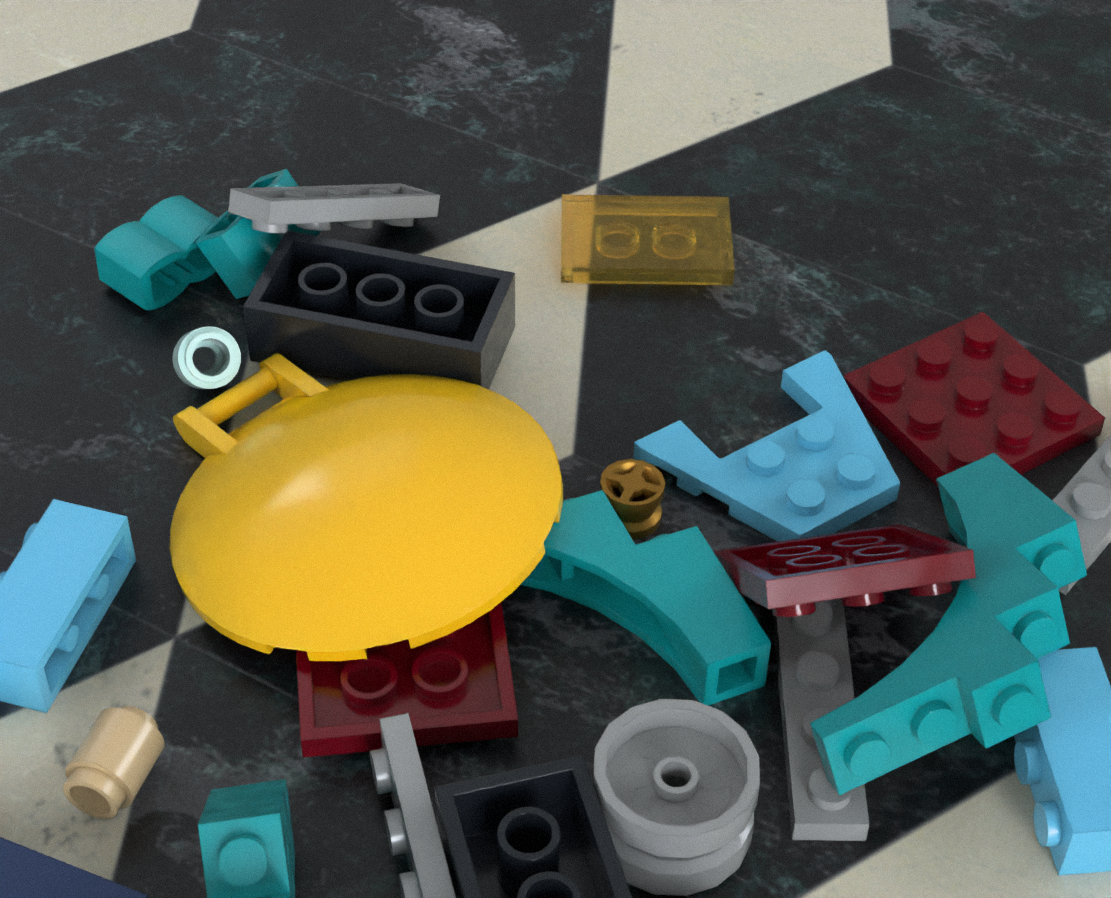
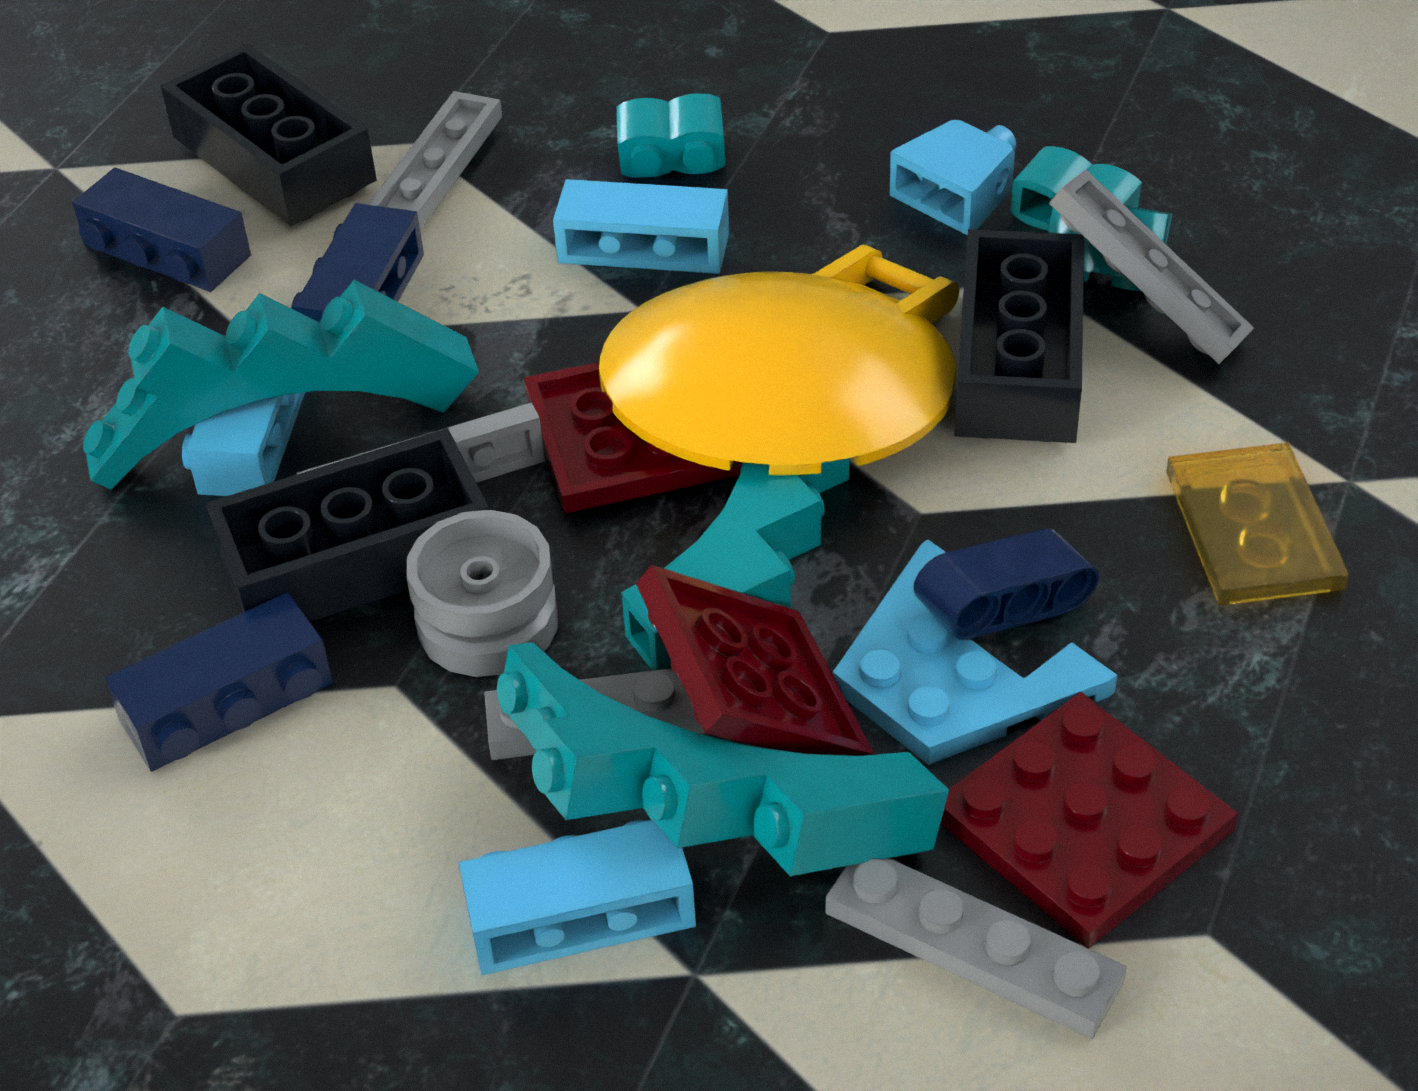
camera: 85 degrees right, 0 degrees up
(86, 327) = (955, 173): none -> medium azure torso
(113, 761) = (496, 290): tan brick -> none
(226, 358) = (929, 241): light aqua brick -> none
(635, 494) = (850, 545): pearl gold wheel -> none
(725, 388) = (1005, 583): none -> dark blue beam

